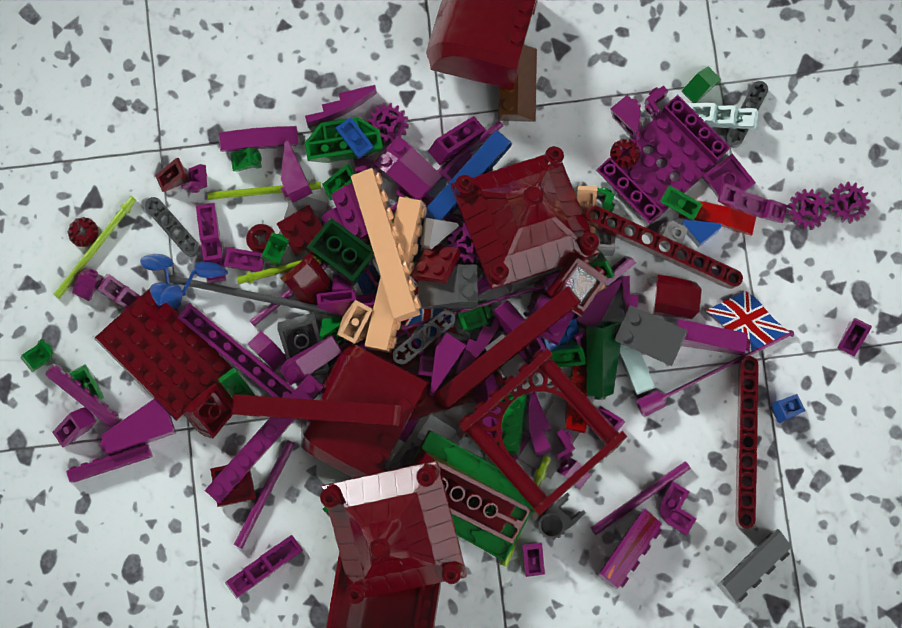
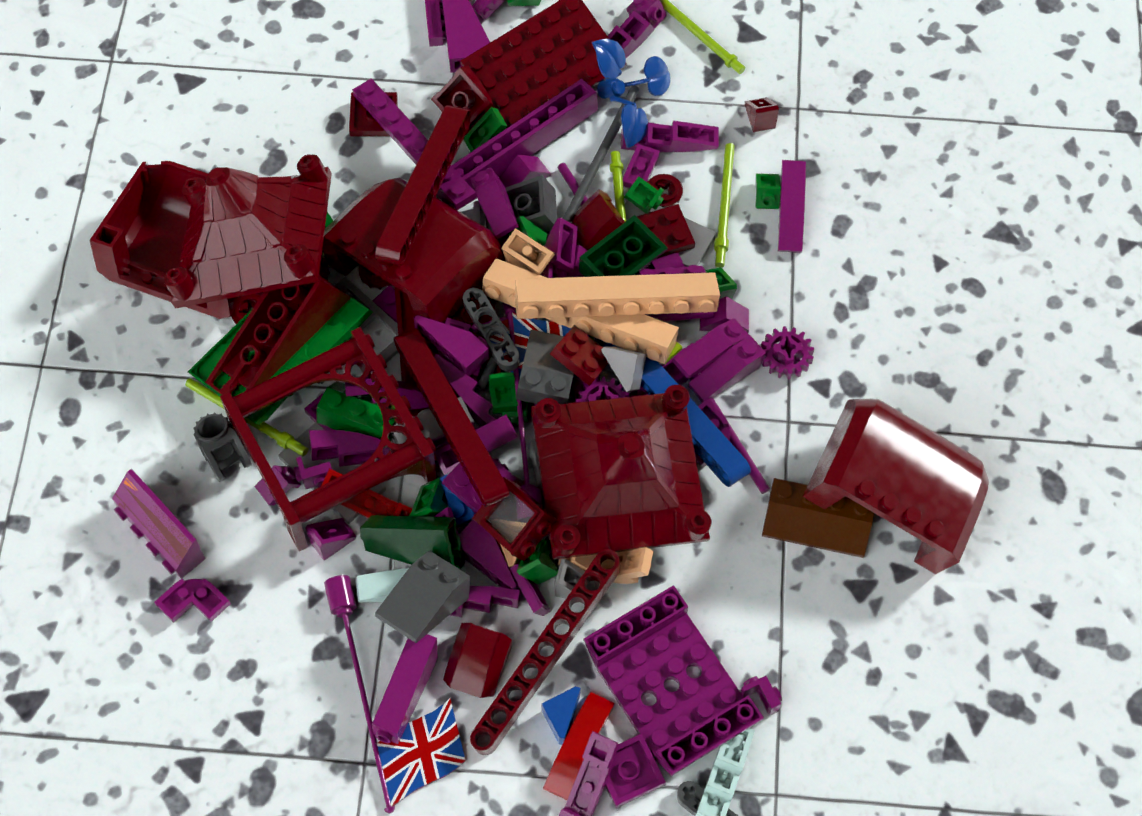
camera: 100 degrees right, 15 degrees down
(91, 233) = (706, 22): dark red gear -> none
(170, 228) = (695, 99): dark grey beam -> none
(197, 179) = (754, 137): magenta bracket -> none
(264, 494) = (350, 143): magenta piece -> none
(264, 566) = (268, 129): magenta slope -> none
(292, 176) = (737, 230): magenta slope -> none
(327, 145) = (771, 289): green wedge -> none
(348, 101) = (821, 308): magenta slope -> none
(354, 138) = (768, 295): blue plate -> none
(455, 140) = (751, 428): magenta slope -> none
(533, 559) = (184, 412): magenta slope -> none
(606, 194) = (625, 598): green bracket -> none
(625, 162) = (689, 643): dark red gear -> none
(628, 115) = (744, 651): magenta slope -> none
(640, 498) = (222, 560): magenta piece -> none
(673, 231) = (565, 671): light grey bracket -> none
(681, 202) = (603, 691): green slope -> none
(701, 84) = (778, 766): green slope -> none
(742, 451) = (243, 699): dark red beam -> none
(754, 566) = (84, 677): dark grey slope -> none
(787, 408) = (283, 774): blue slope -> none

